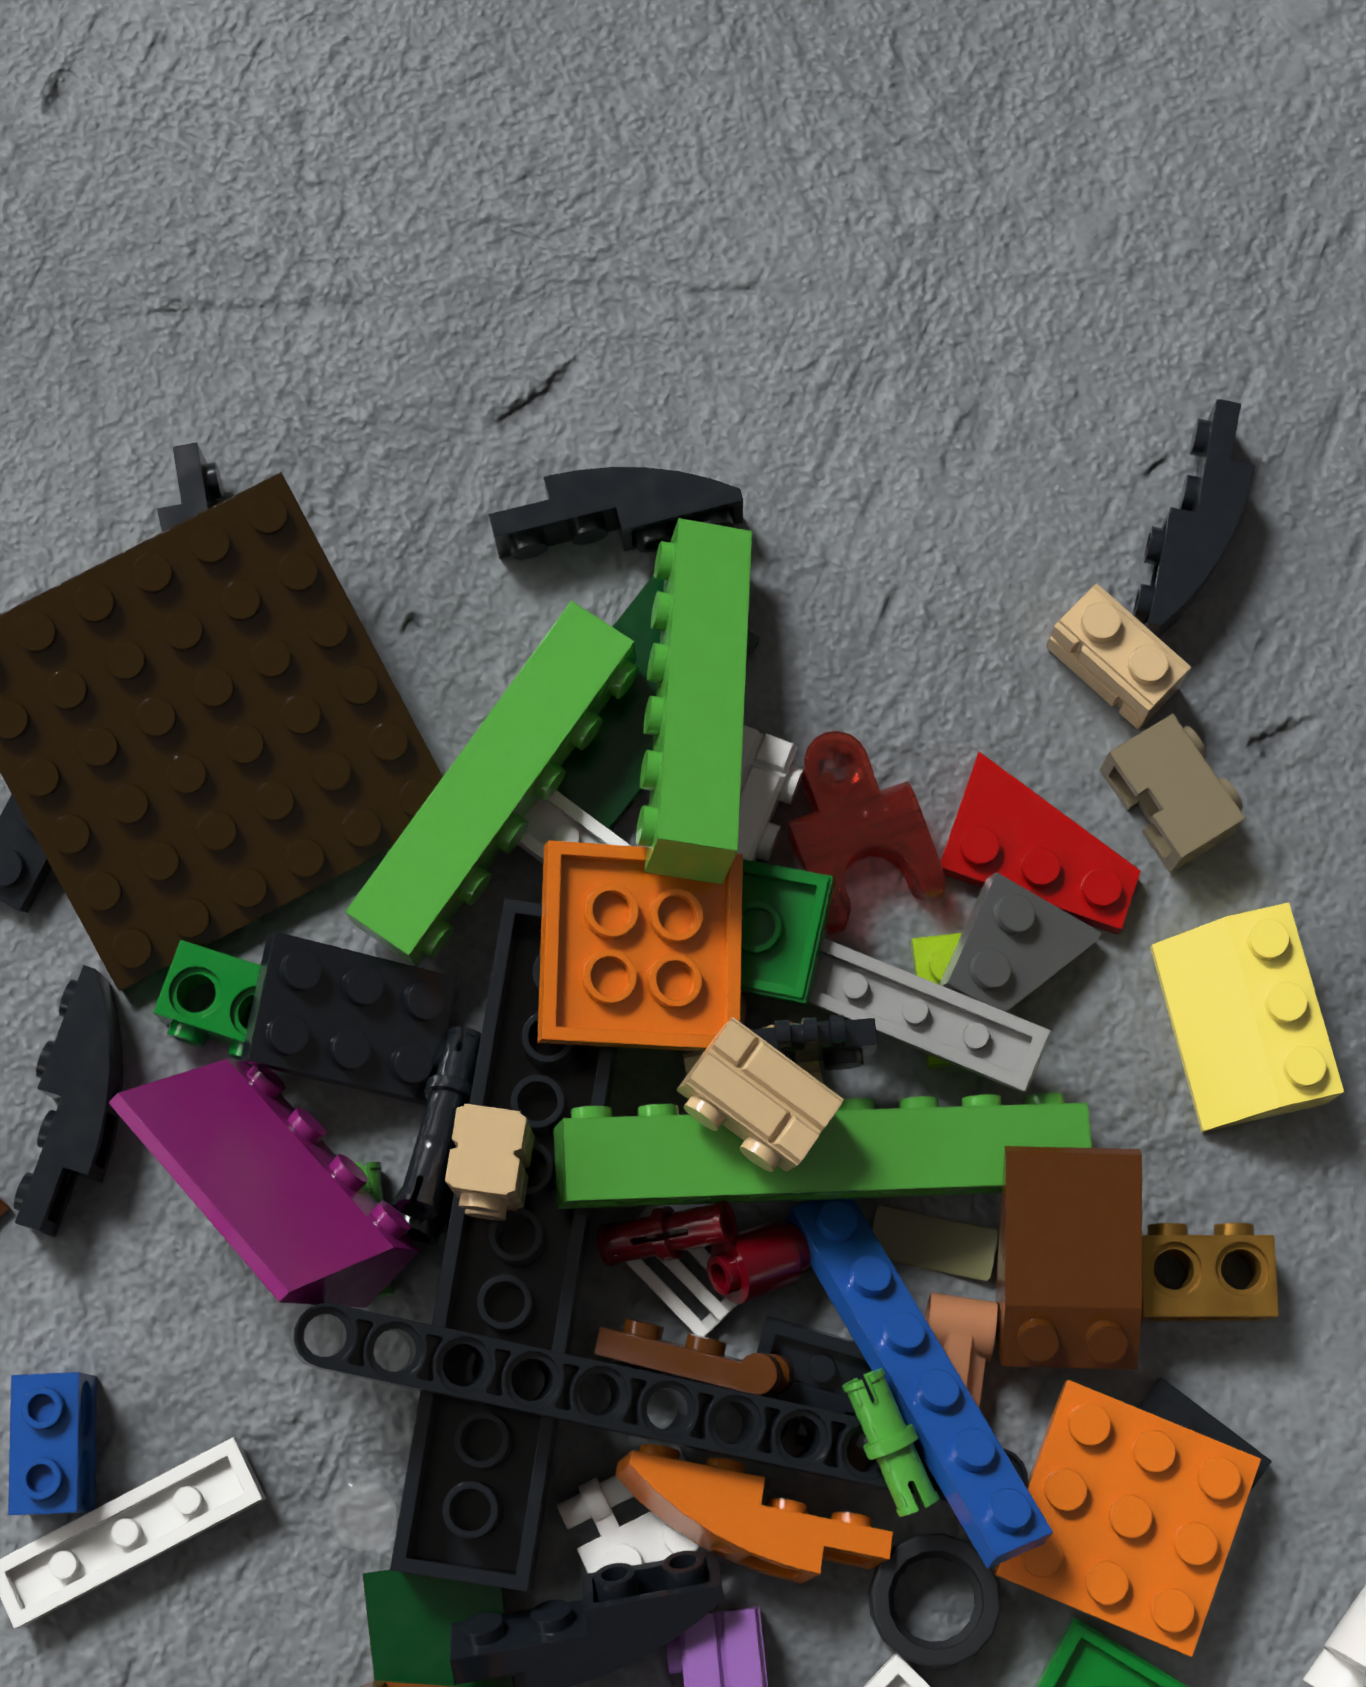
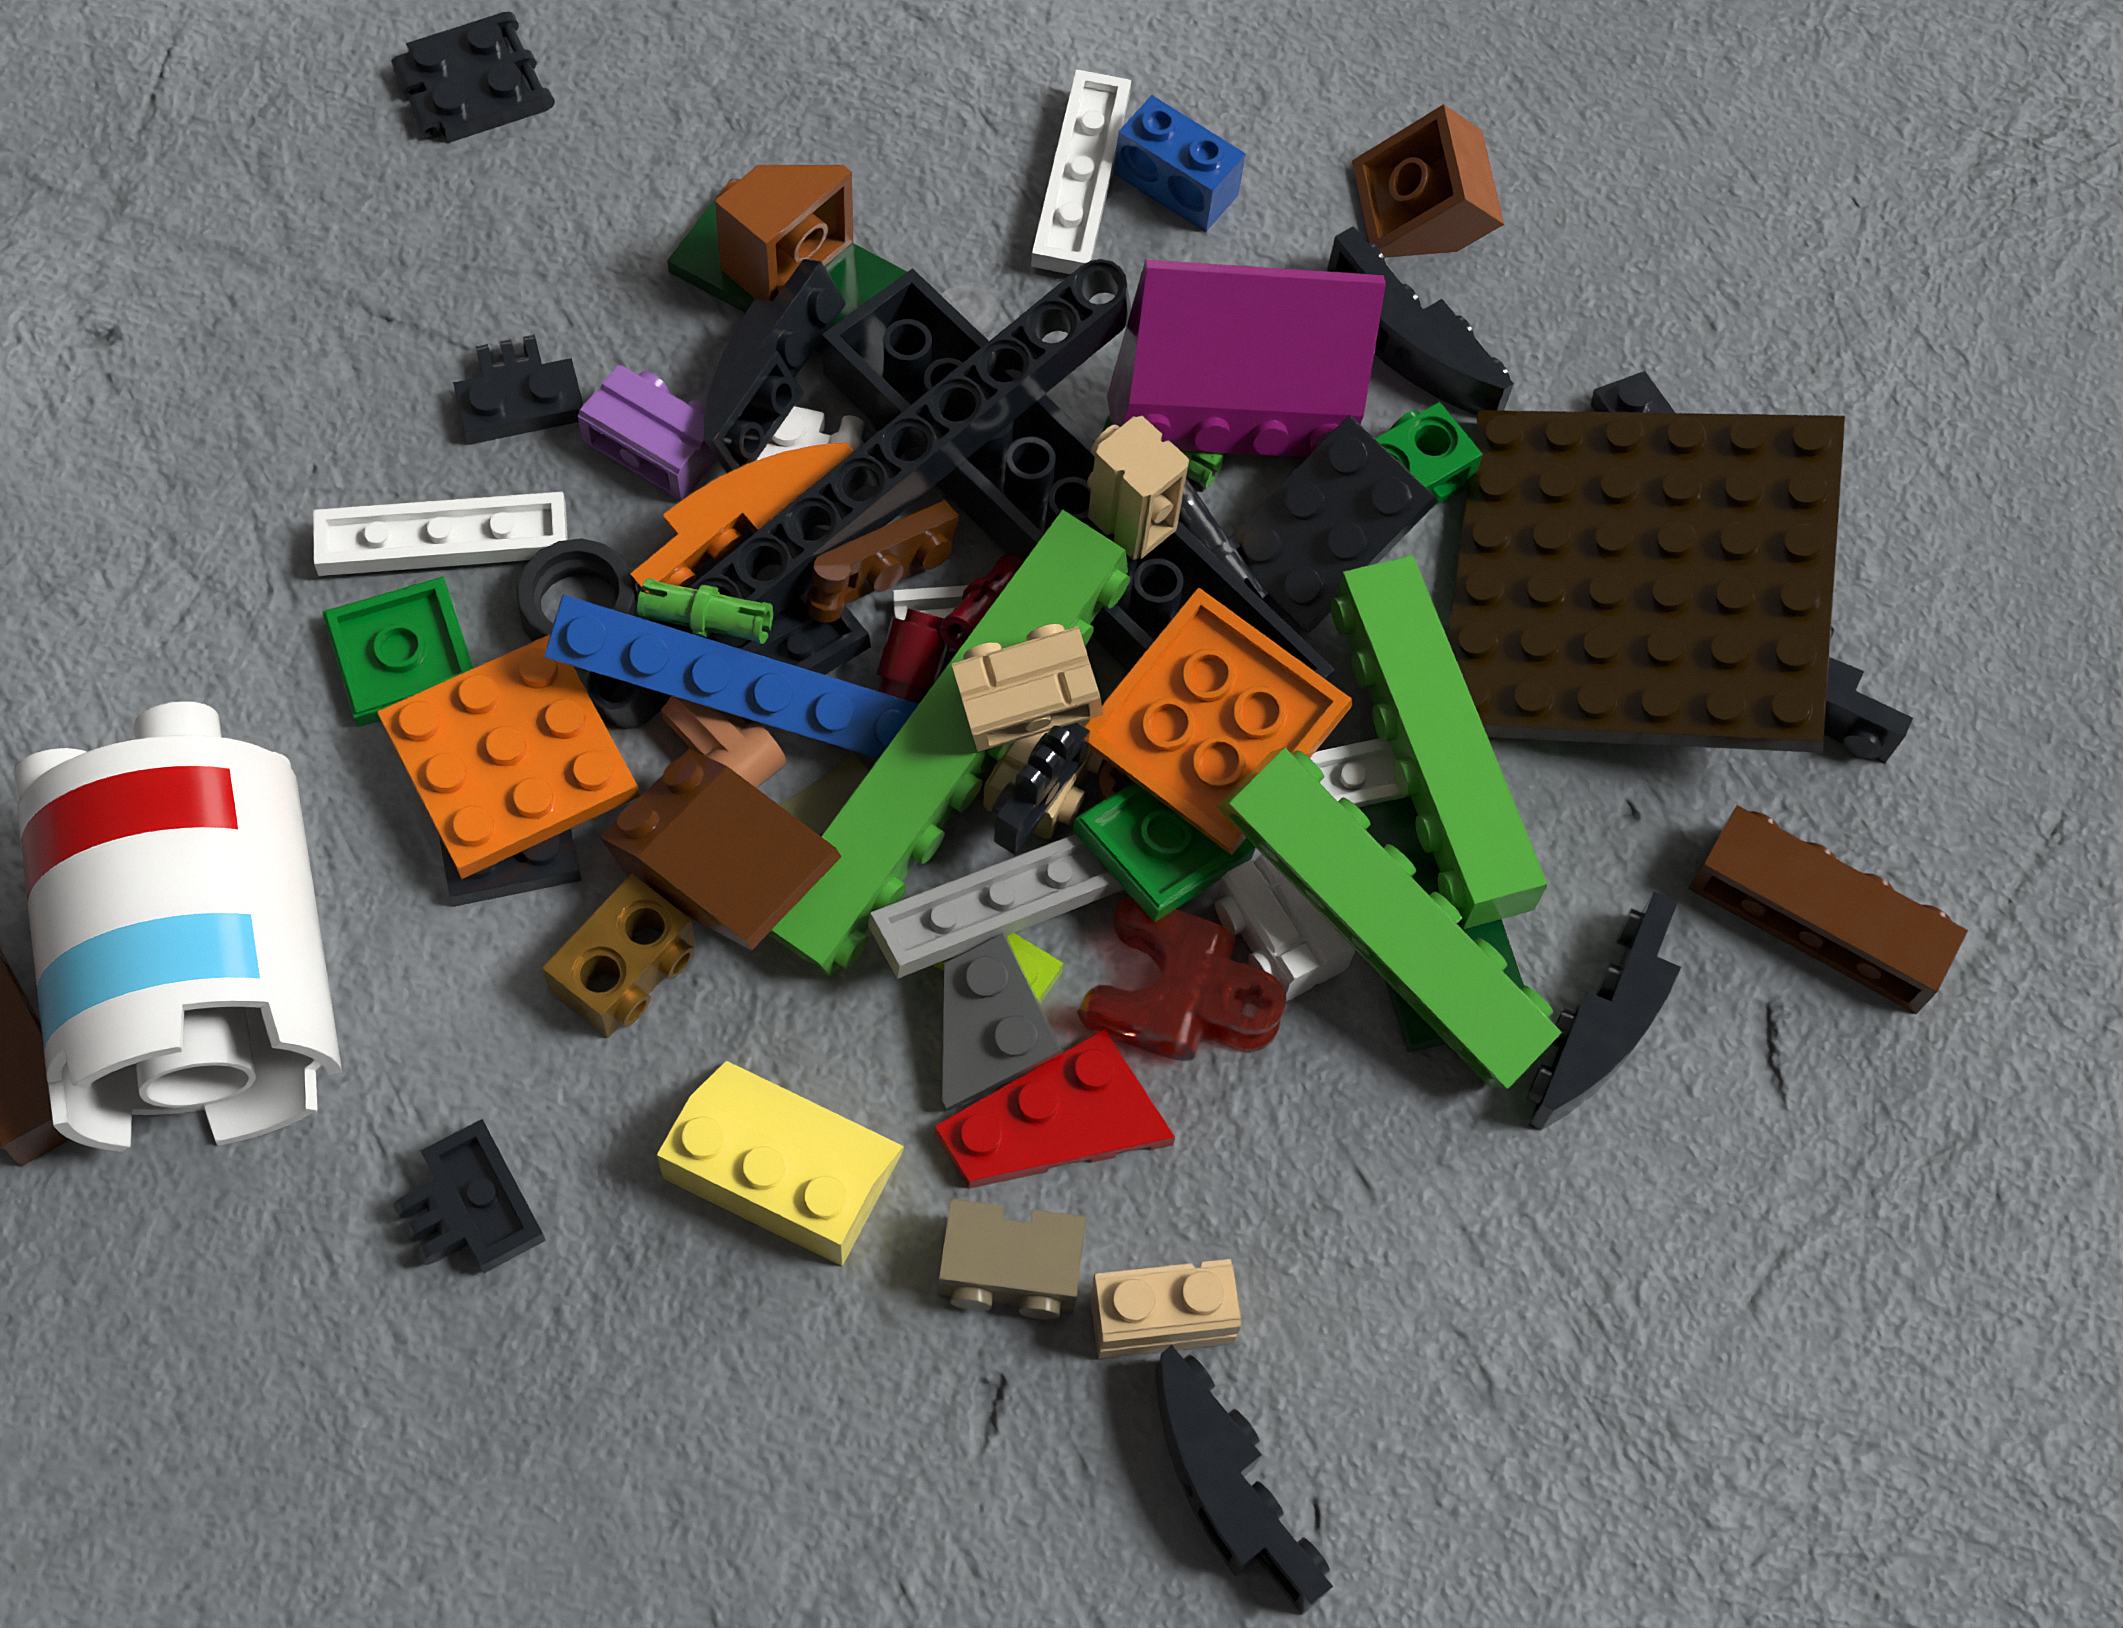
camera: 120 degrees right, 10 degrees down
(390, 418) = (1829, 909): none -> reddish brown brick

